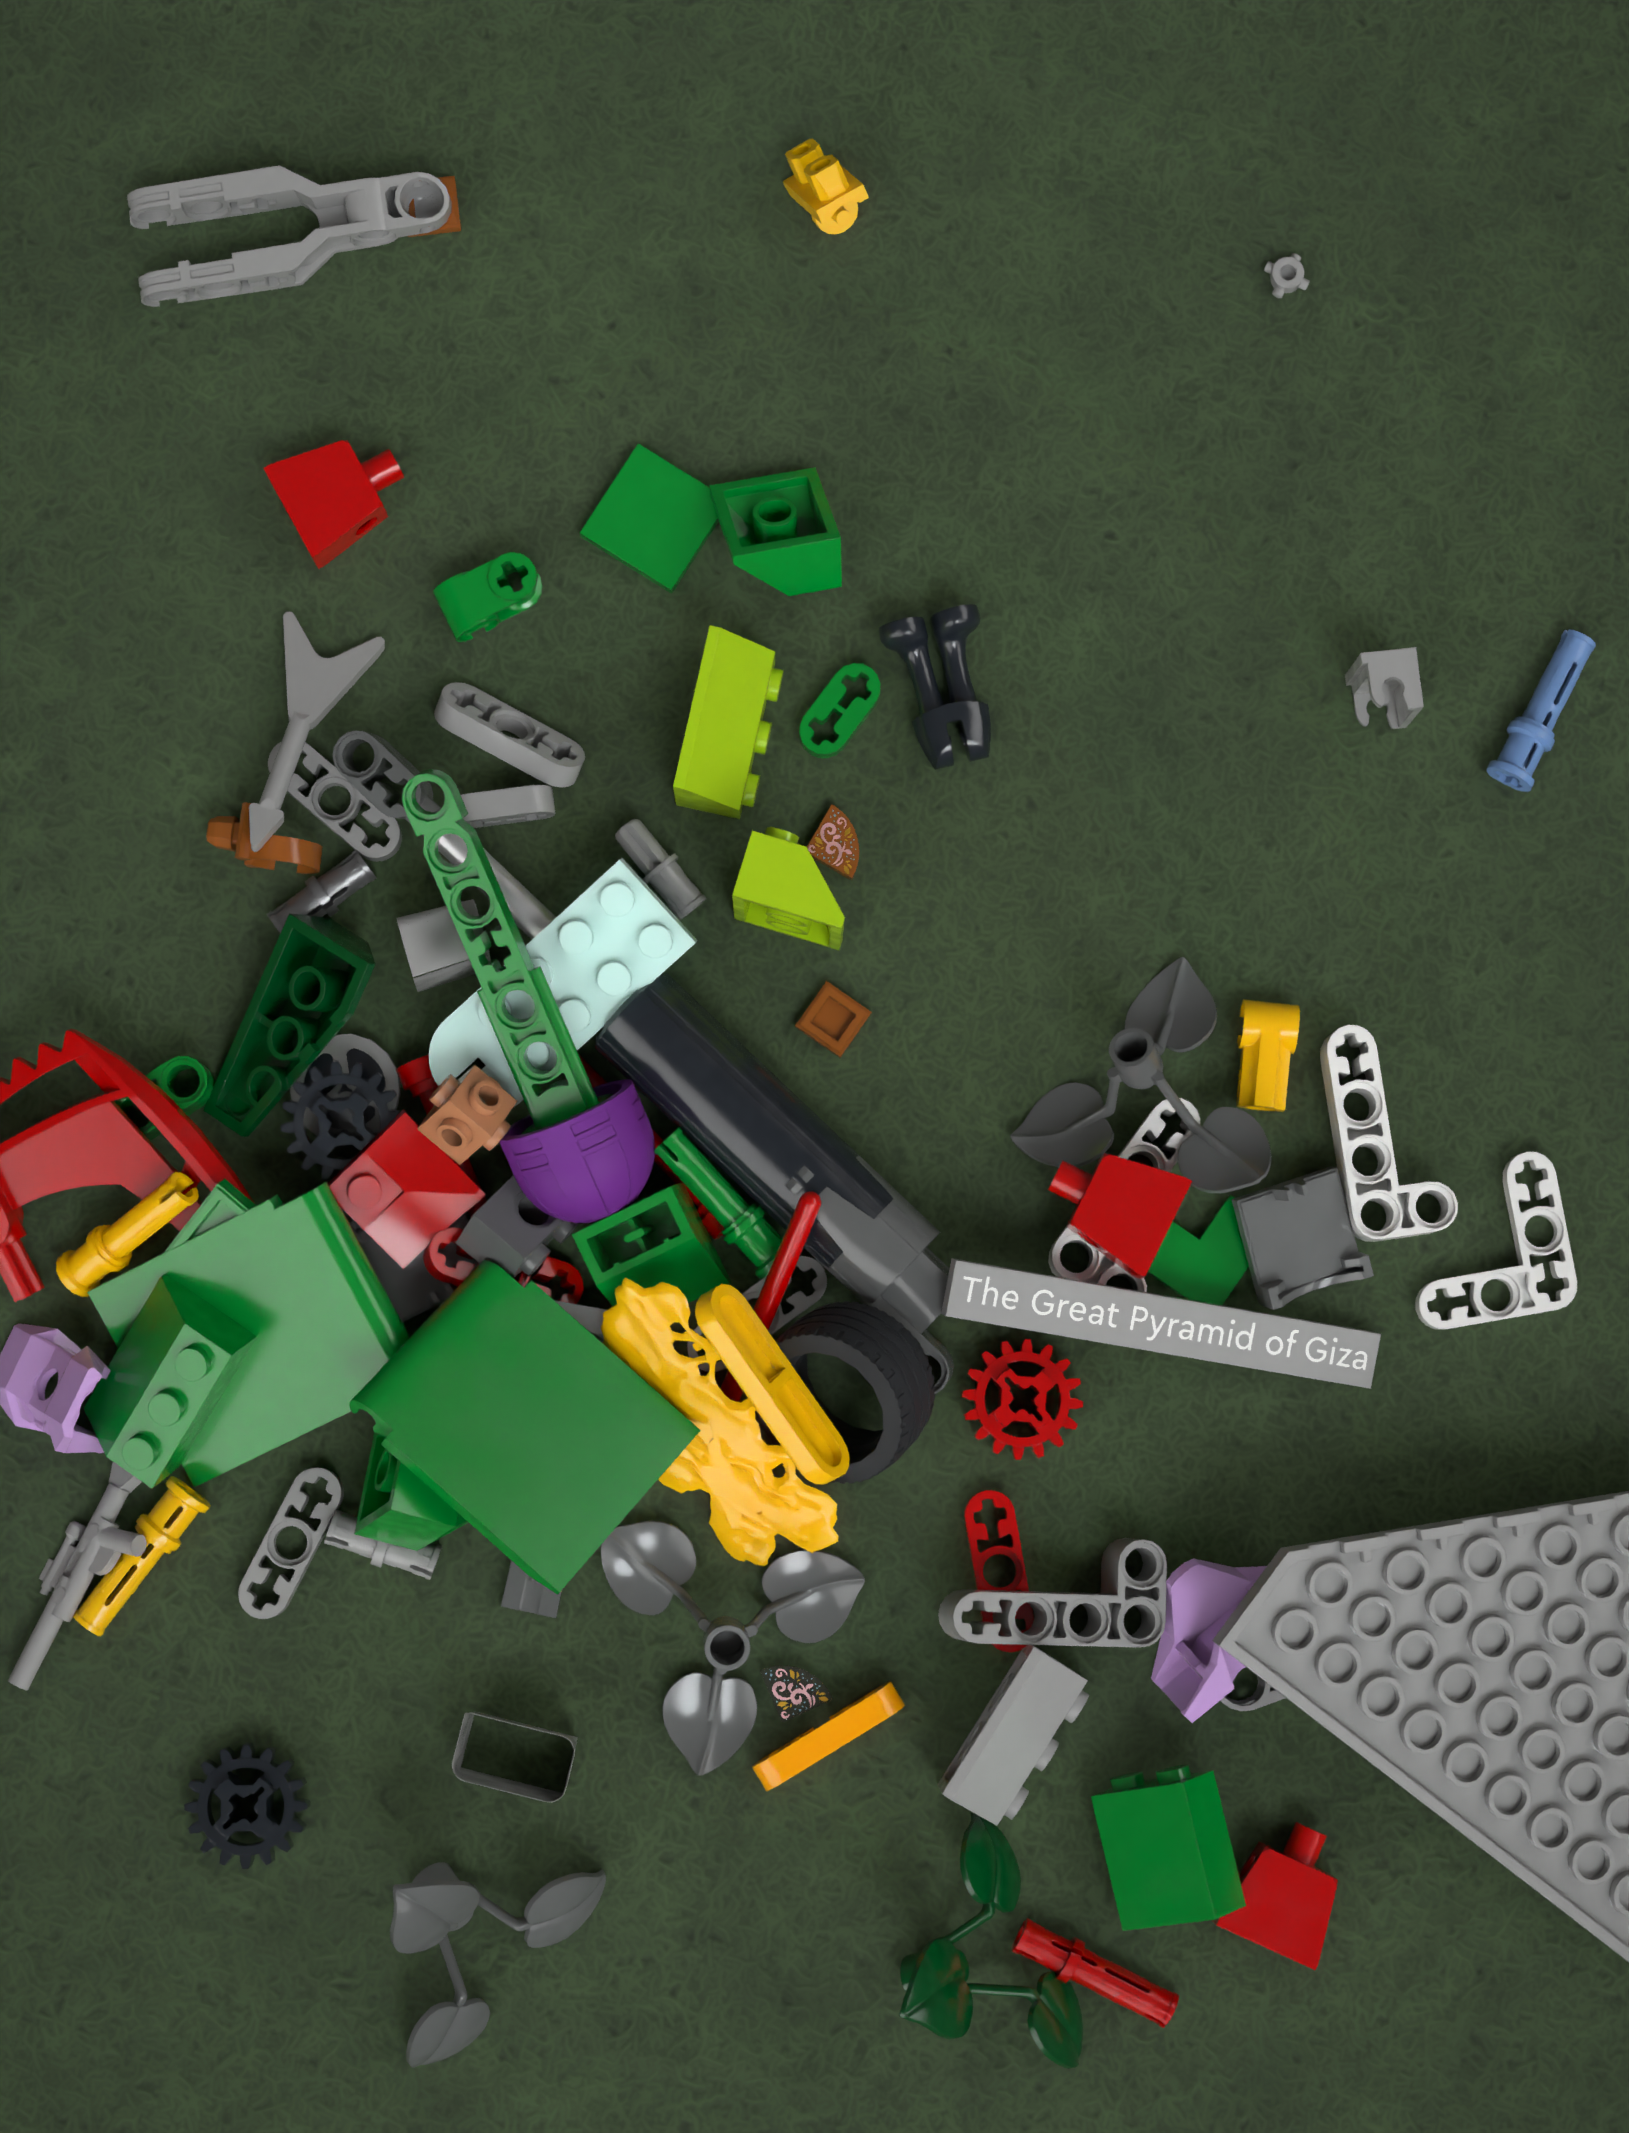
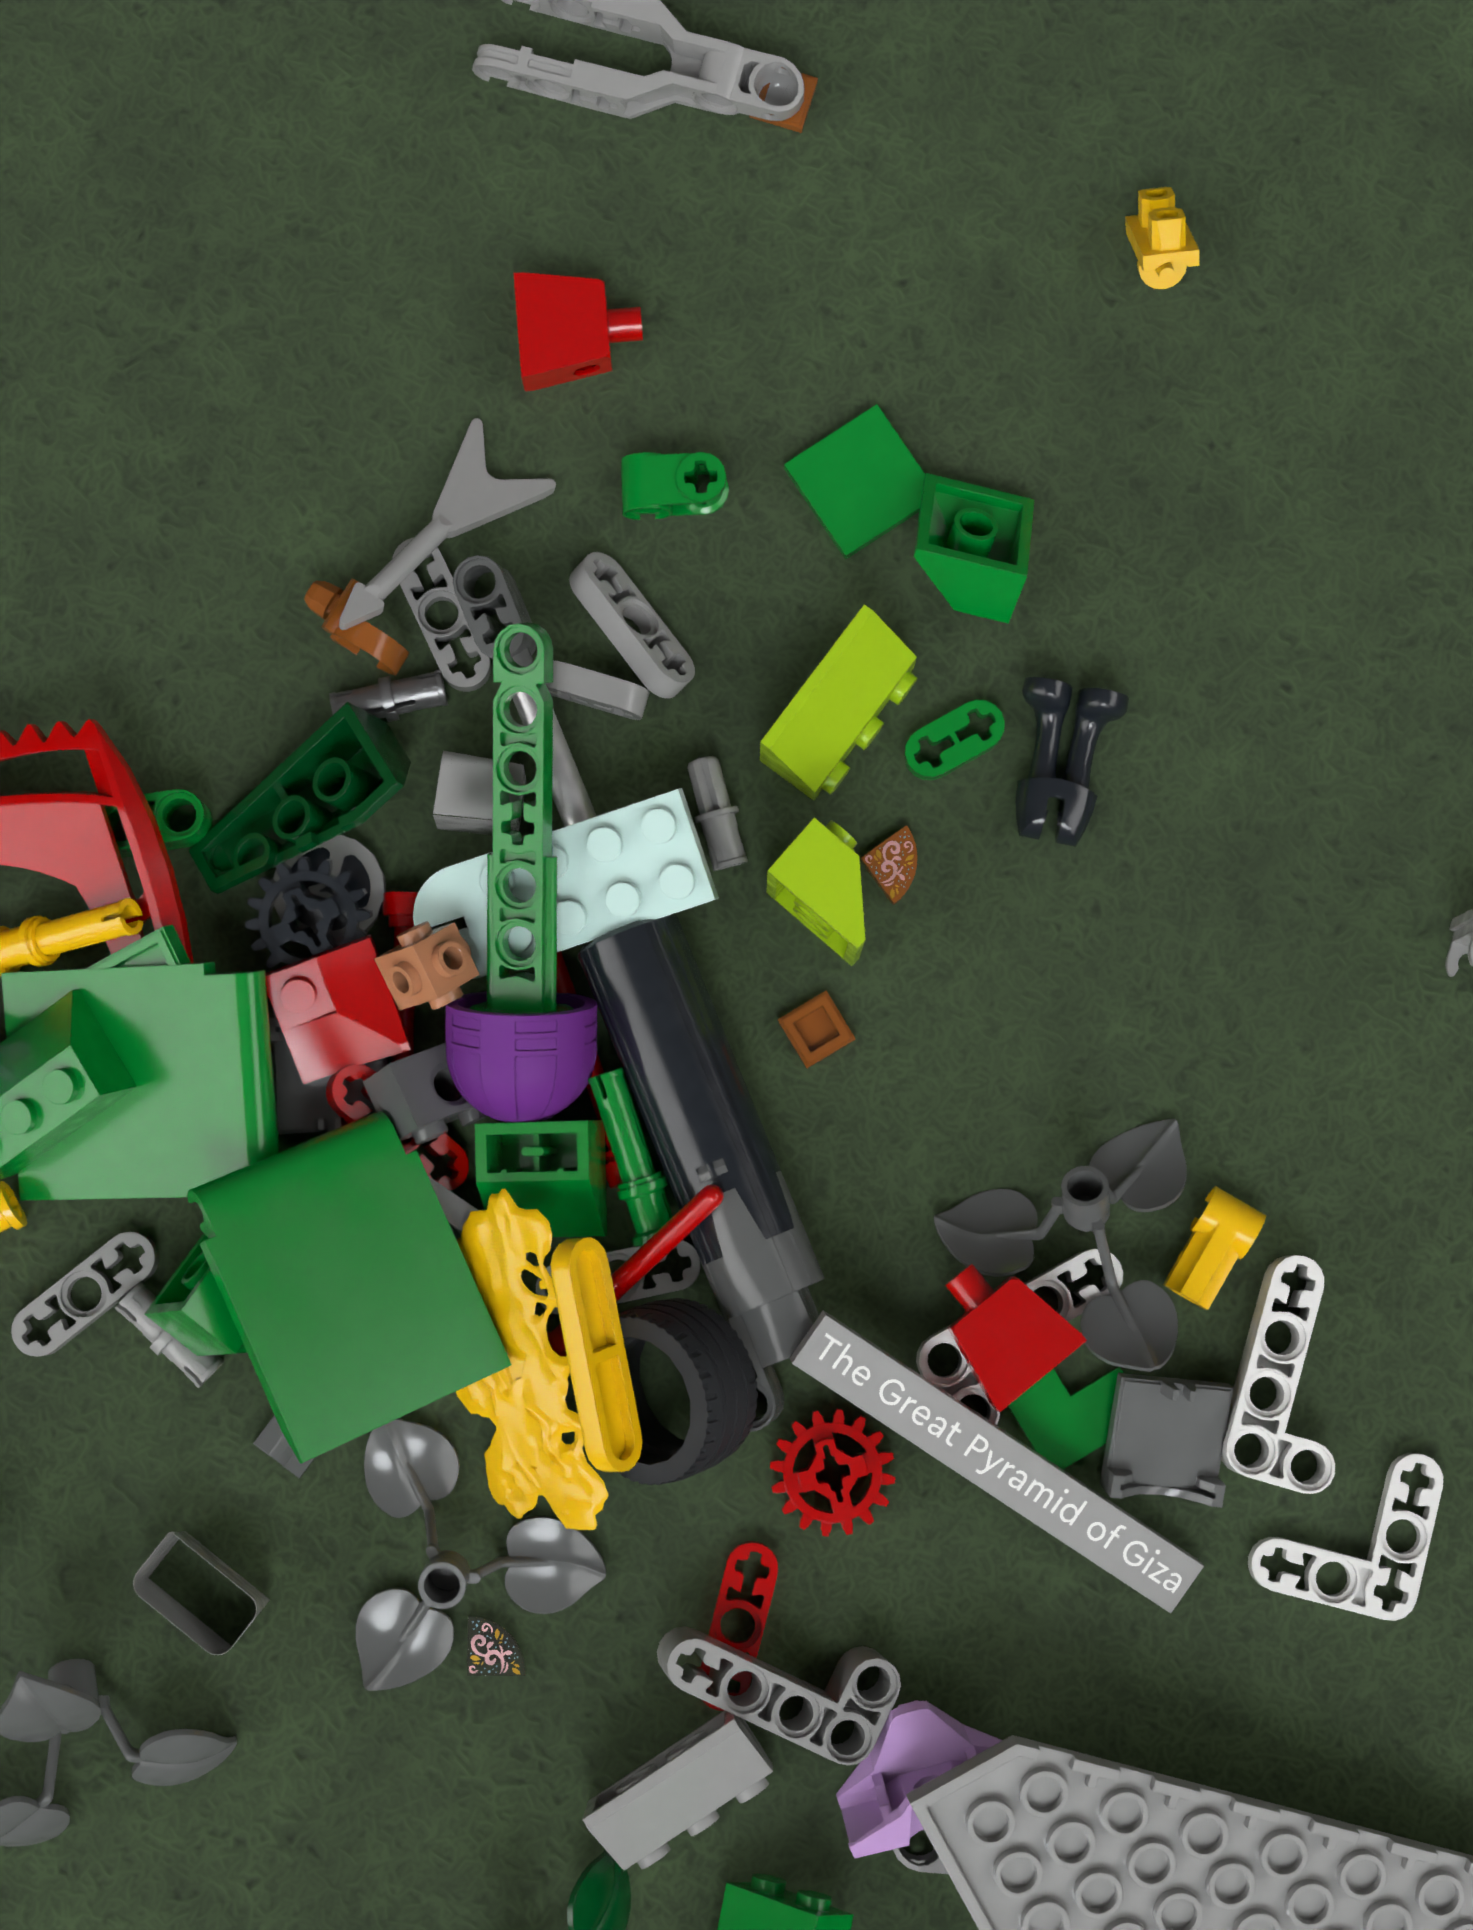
camera: 30 degrees right, 0 degrees up
(829, 1737) = (491, 1712): light orange beam -> none

